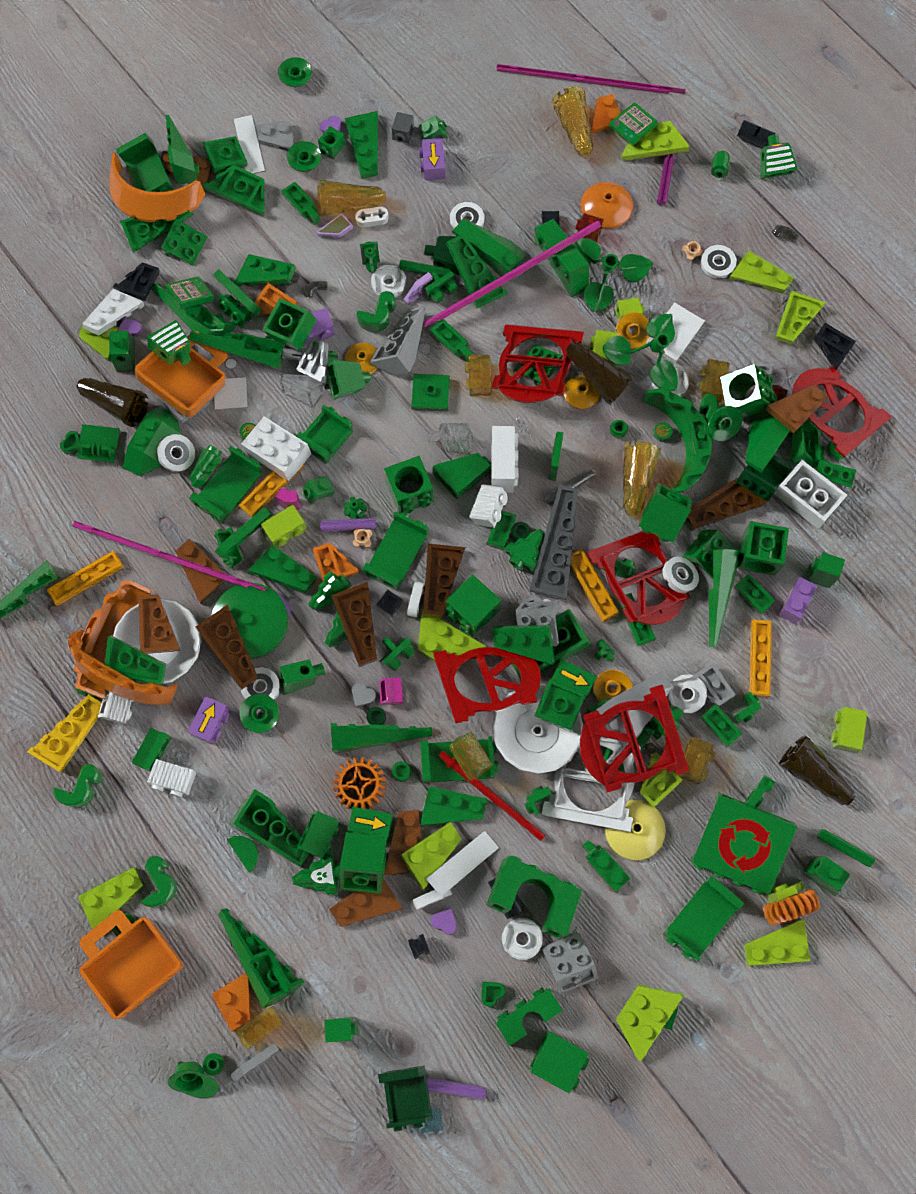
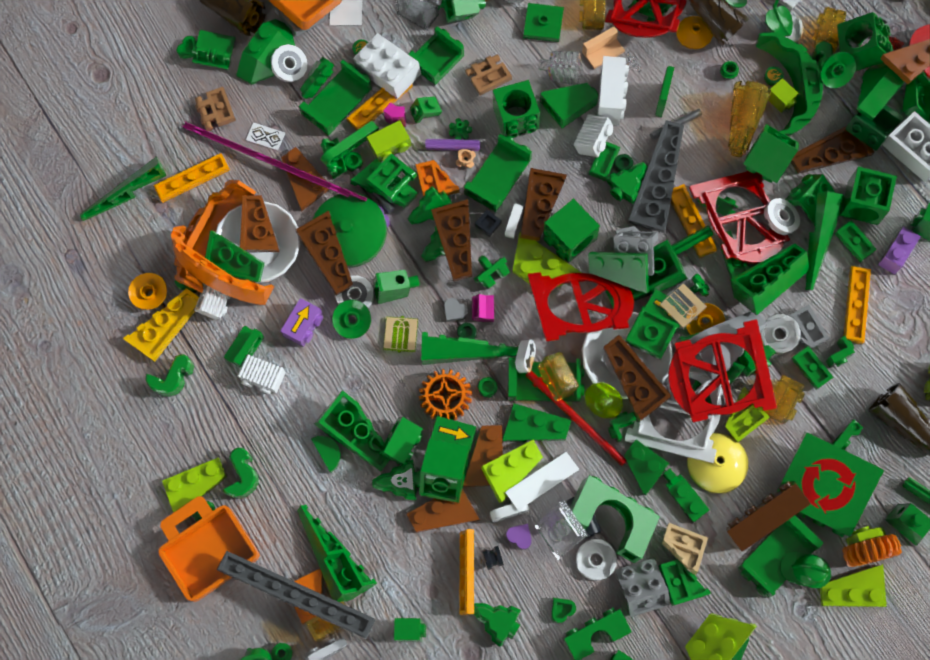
camera: 10 degrees right, 0 degrees up
(42, 694) = (142, 285): none -> light orange dish
(109, 502) = (220, 106): none -> medium nougat plate
(158, 529) = (265, 136): none -> white sticker
(223, 1004) = (296, 595): none -> dark grey tile
(249, 549) = (353, 161): none -> green tile
(283, 561) = (386, 173): none -> green plate
(310, 723) = (400, 334): none -> piece
(381, 454) = (491, 78): none -> medium nougat plate
(393, 964) = (466, 572): none -> light orange tile
(429, 1010) = (498, 621): none -> green rock
(436, 737) = (525, 356): none -> white beam
(484, 913) = (561, 529): none -> clear tile
(491, 414) = (602, 45): none -> light nougat panel
(518, 776) = (603, 394): none -> clear neon green dish
(548, 753) = (637, 381): none -> reddish brown wing
(563, 838) = (645, 465): none -> green wing
(589, 674) = (683, 305): none -> piece
(594, 605) = (692, 240): none -> green axle
(608, 955) = (681, 583): none -> green wing
(609, 918) = (685, 546): none -> tan wing
(673, 451) = (783, 96): none -> lime brick
(673, 639) = (770, 278): none -> green wedge
(687, 881) = (768, 515): none -> reddish brown brick
(729, 931) = (805, 569): none -> green piece

